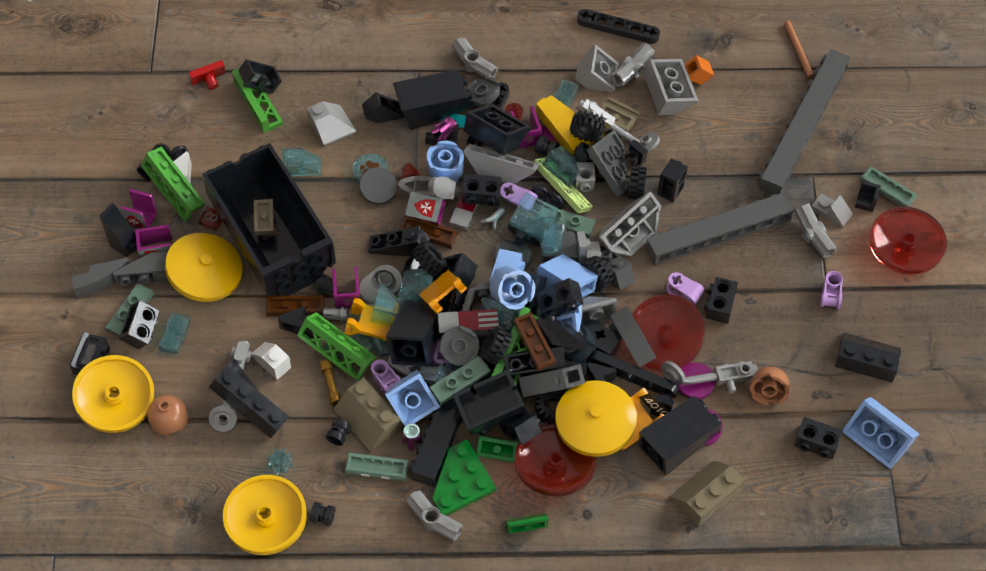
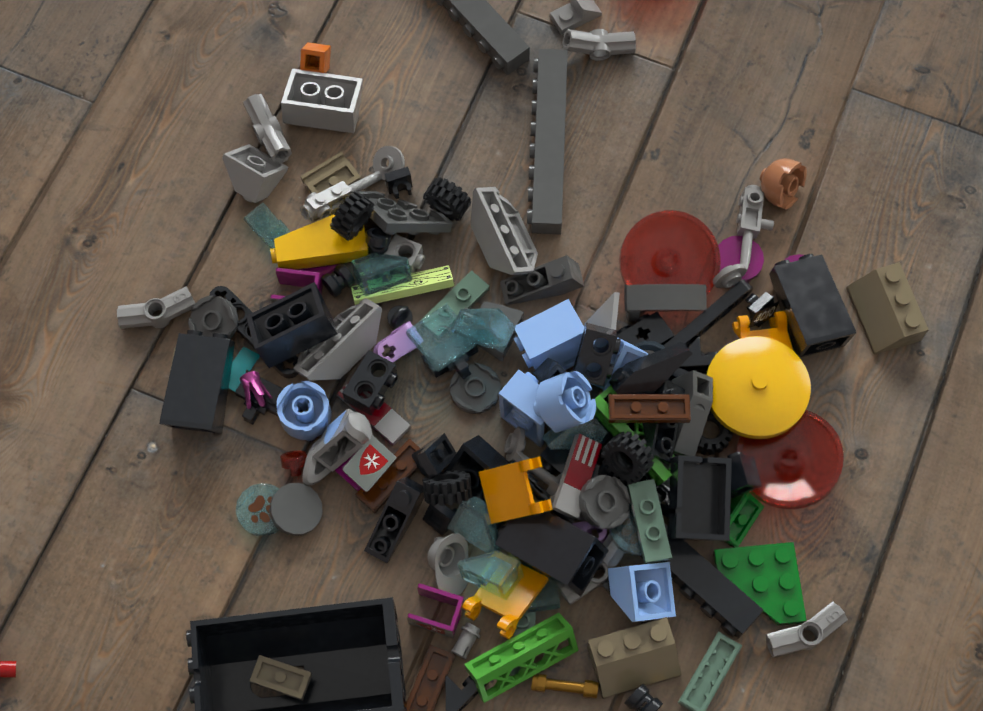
camera: 65 degrees left, 10 degrees up
(254, 104) = (71, 623): bright green fence -> none
(259, 76) = (40, 597): black window -> none
(301, 162) = (208, 595): clear light blue slope -> none
(324, 284) = (415, 638): black tile -> none
(329, 122) = (161, 533): light grey slope -> none
(382, 108) = (176, 456): black slope -> none
(385, 380) = (596, 611): lavender piece -> none
(411, 433) = (687, 612): piece -> none
(448, 244) = (434, 456): none -> black slope
(494, 217) = (410, 388): light grey bar -> none
(517, 109) = (260, 295): clear red tile -> none
(526, 523) = (850, 525): green slope -> none
(555, 200) = (420, 305): black tile -> none
(586, 248) = (518, 296): light grey slope -> none
(603, 271) = (555, 294): black tyre -> none
(625, 31) = (191, 130): black beam -> none
(672, 180) = (463, 158): black brick -> none
(684, 288) = (617, 213): lavender piece -> none
(720, 299) = (651, 178): black brick -> none
(819, 432) = (863, 163): black brick -> none
(832, 294) = (687, 64): lavender piece -> none
(868, 357) = (783, 66): black slope -> none
(880, 432) = (883, 100): light blue slope -> none

